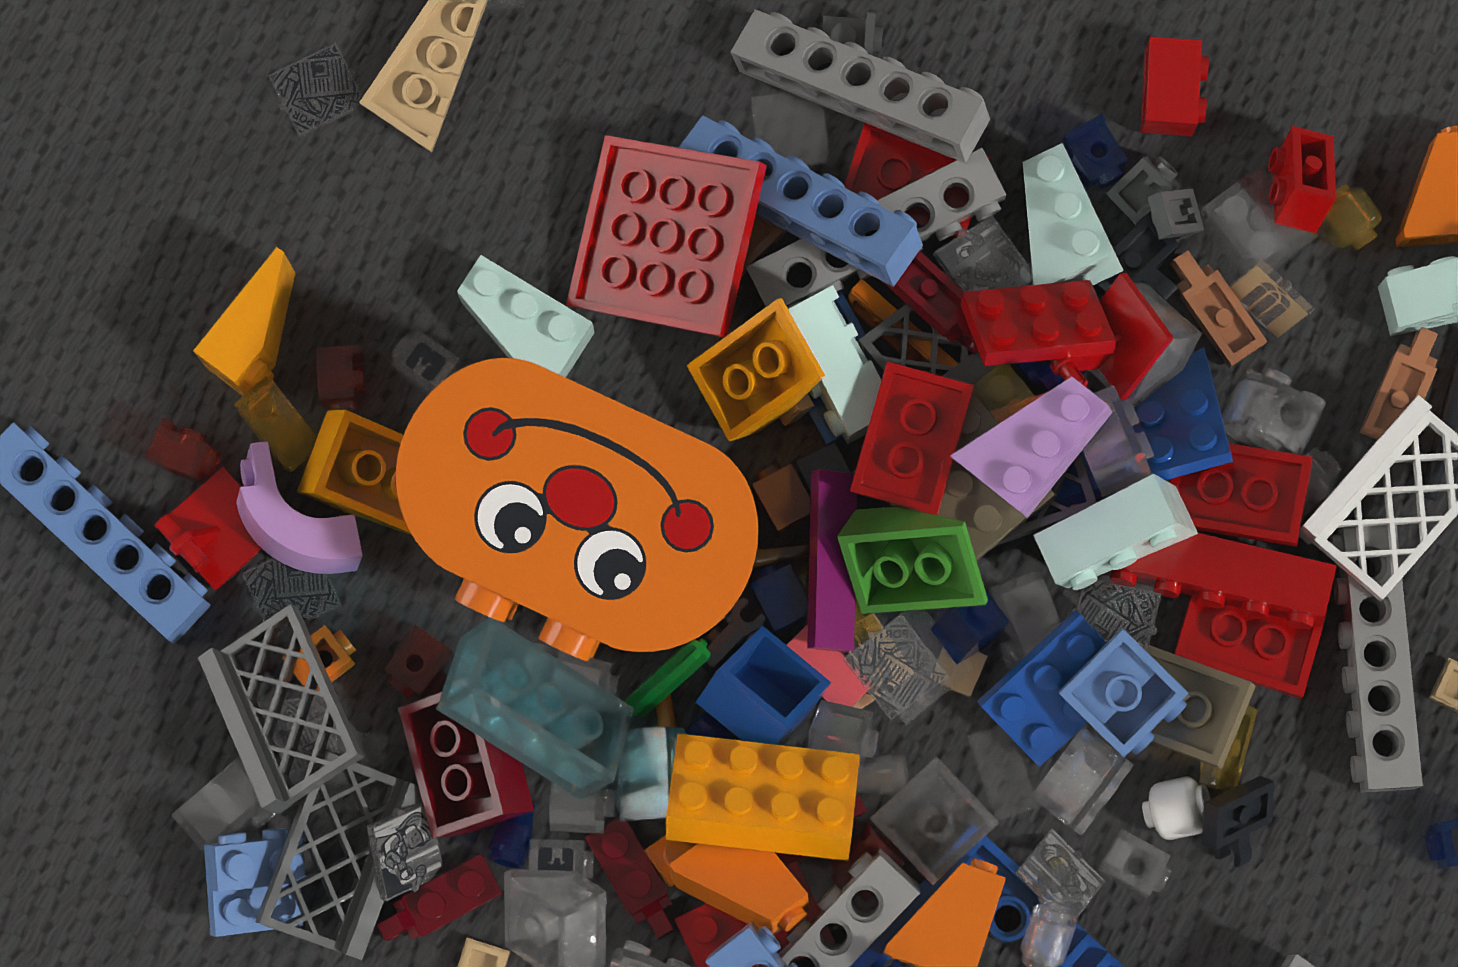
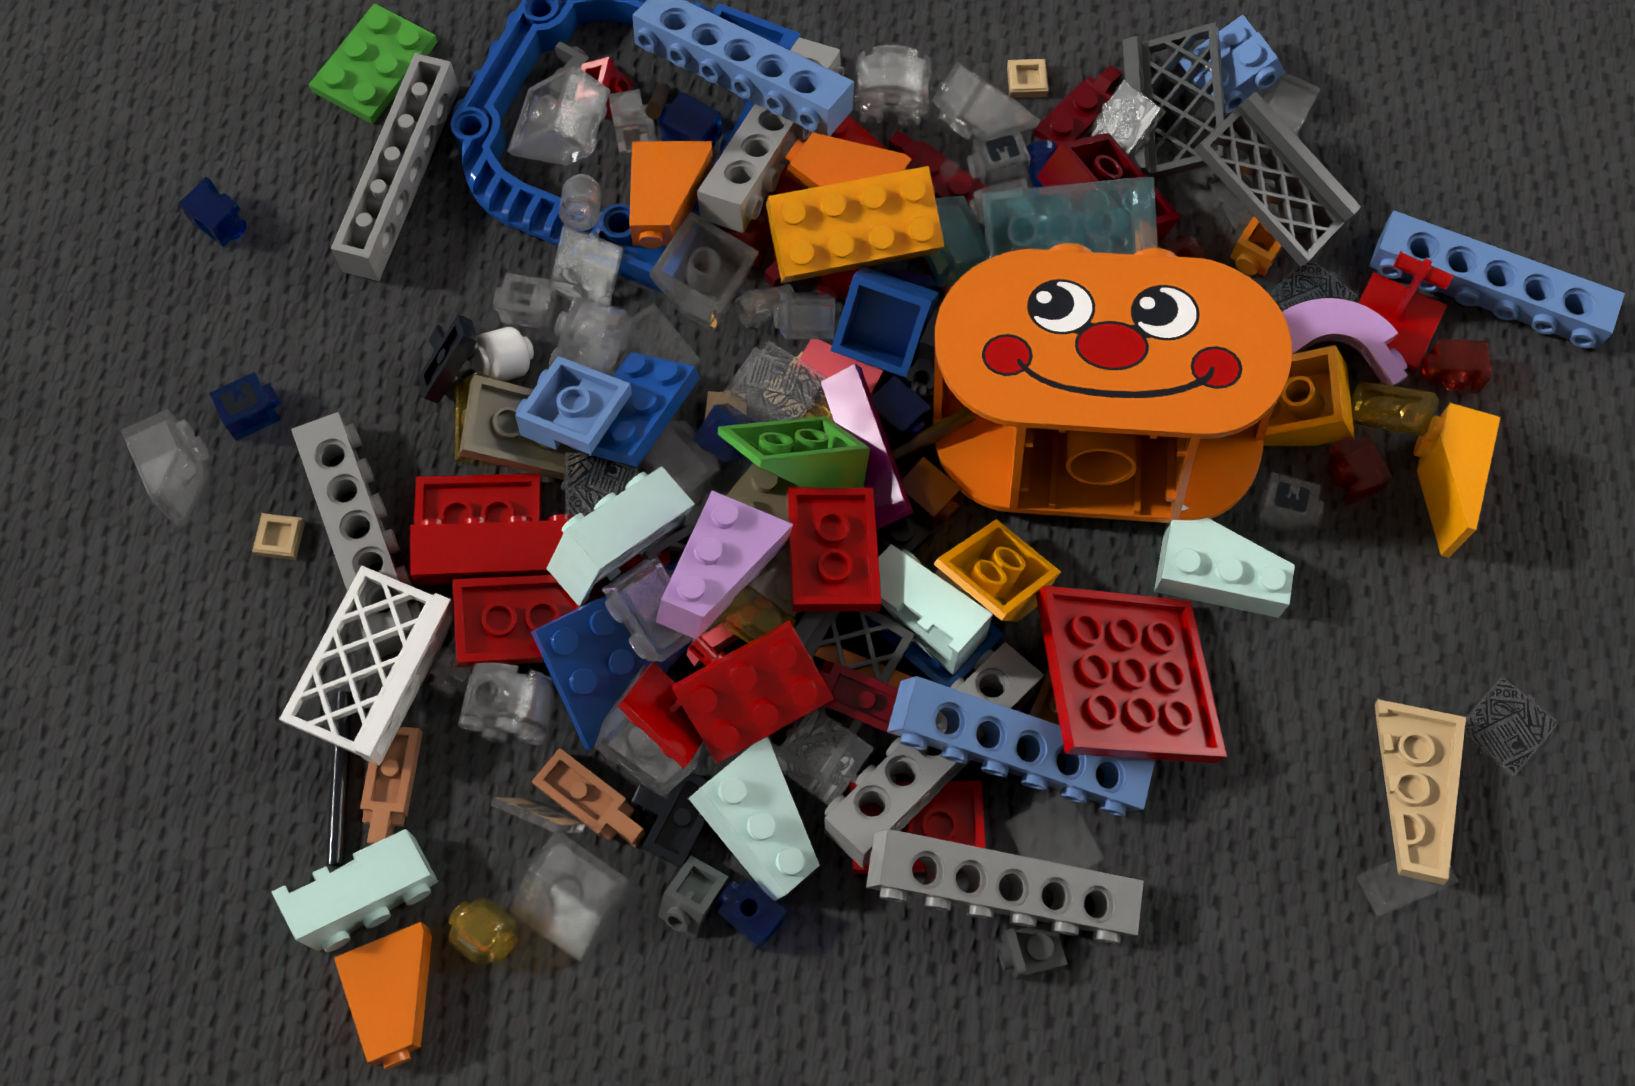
camera: 160 degrees right, 10 degrees down
(1173, 86) = (695, 1005): red brick -> none
(1175, 214) = (653, 867): dark grey bracket -> none
(1303, 179) = (537, 945): red brick -> none

